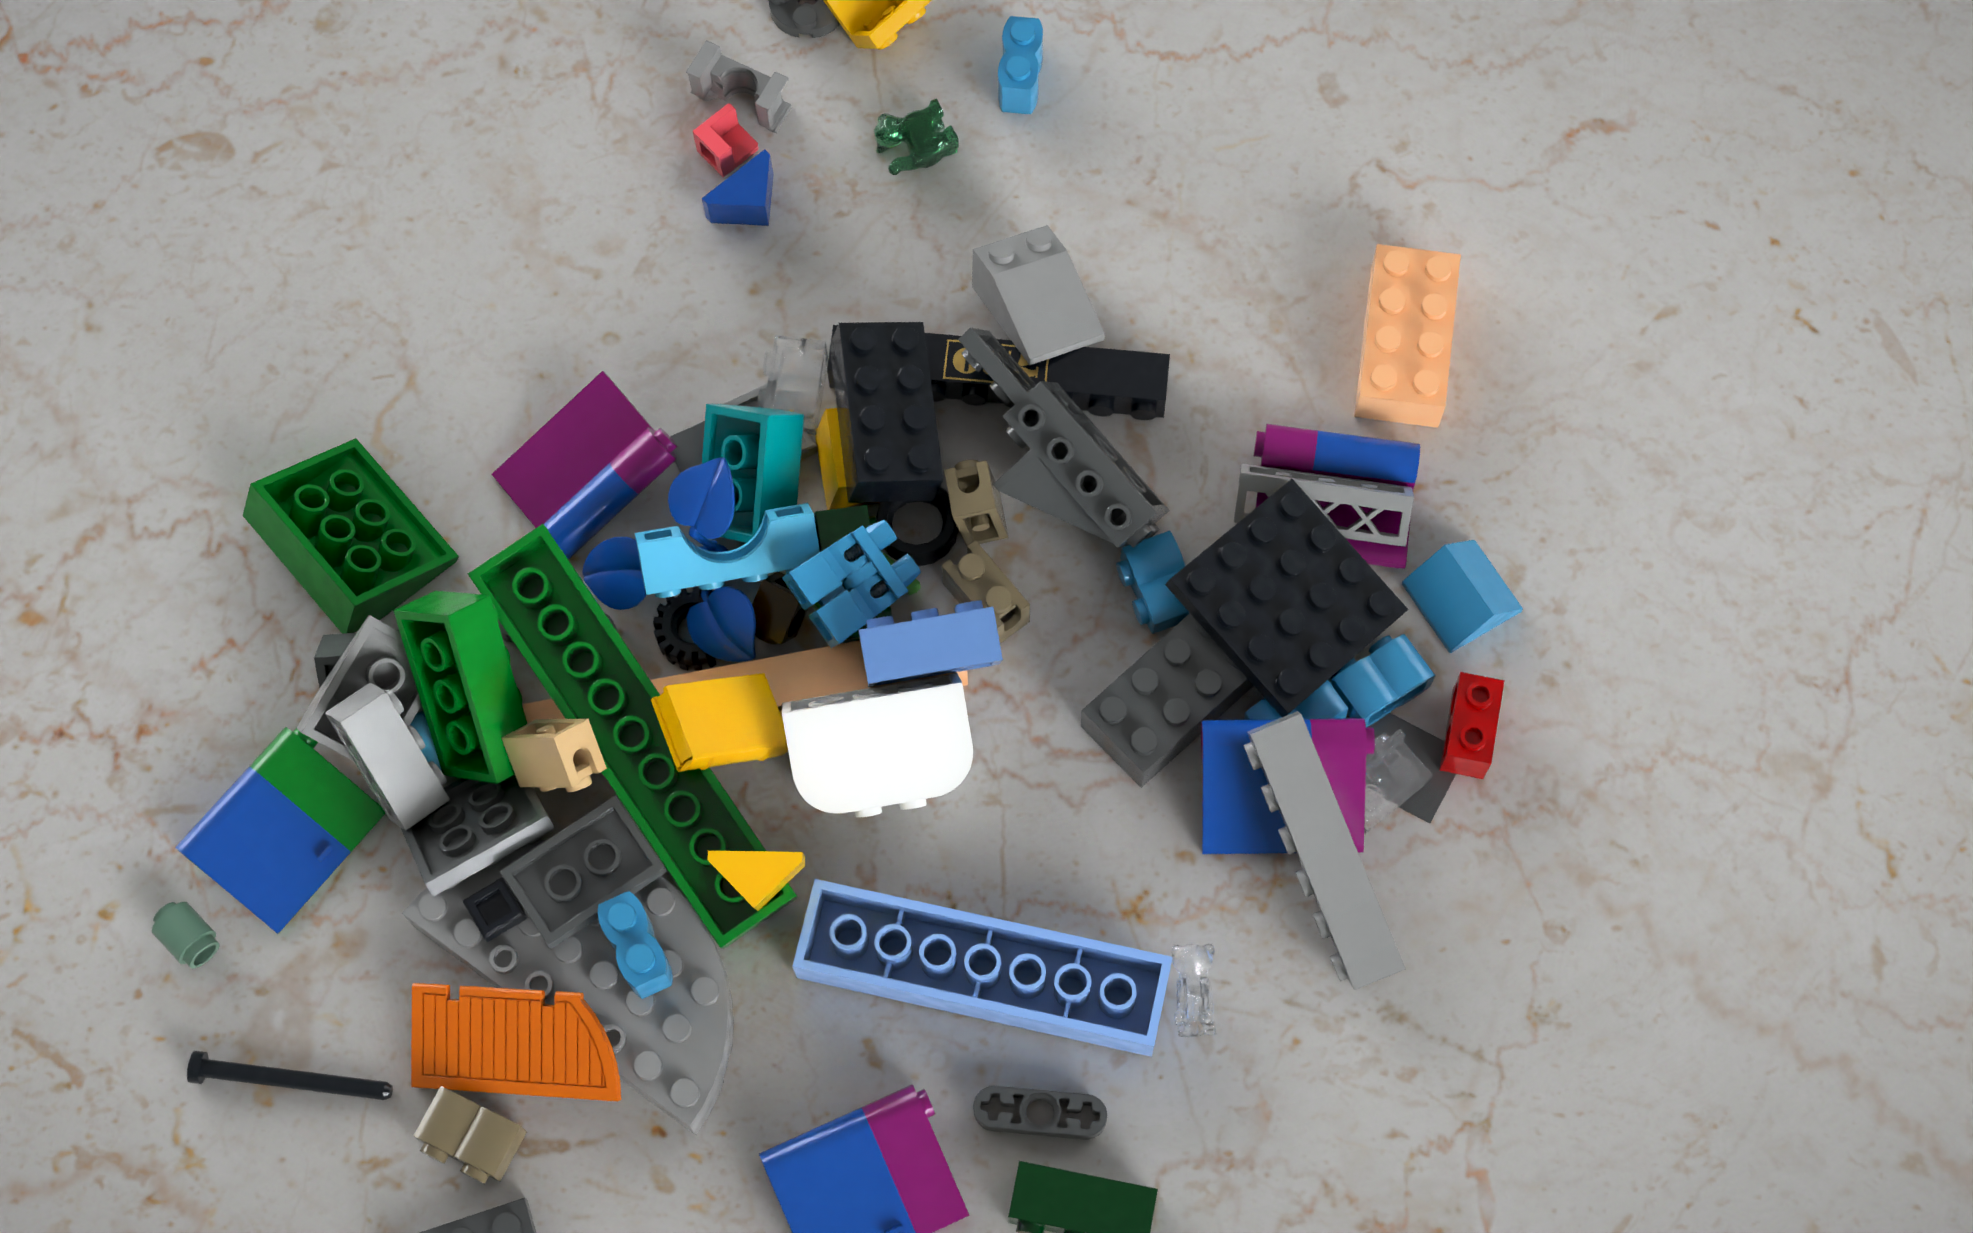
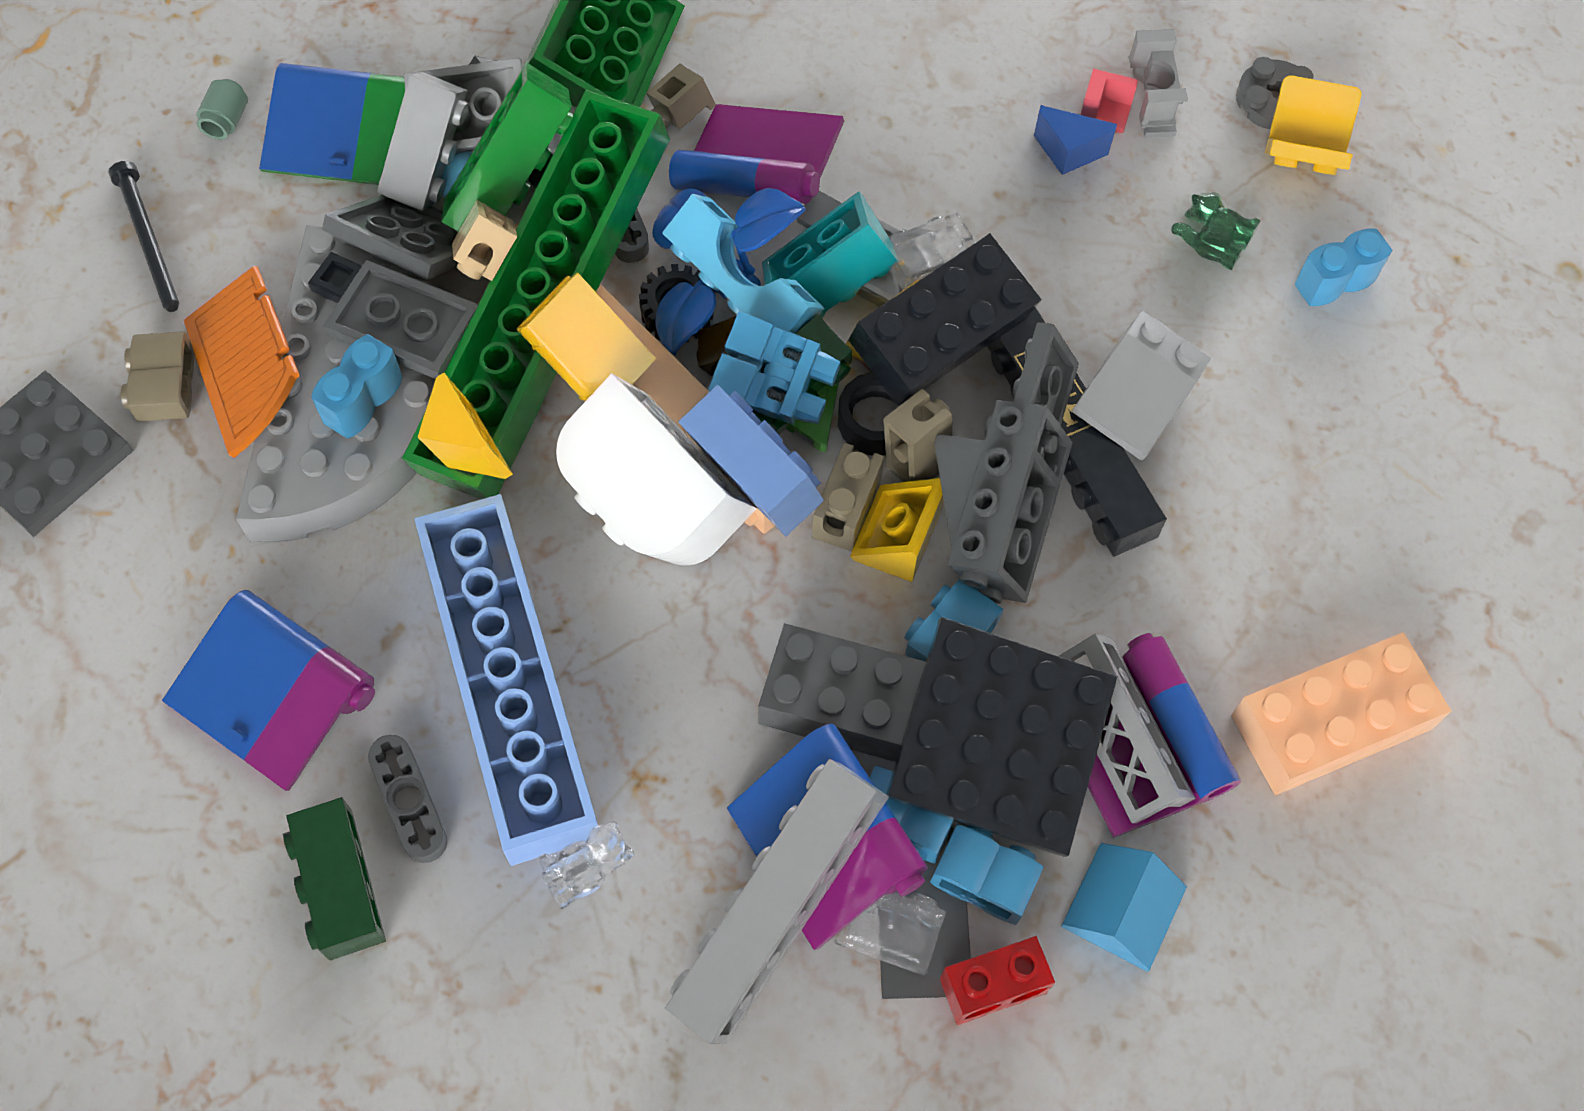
camera: 55 degrees right, 5 degrees down
(461, 495) = (680, 96): none -> dark tan brick
(1041, 565) = (899, 527): none -> yellow slope

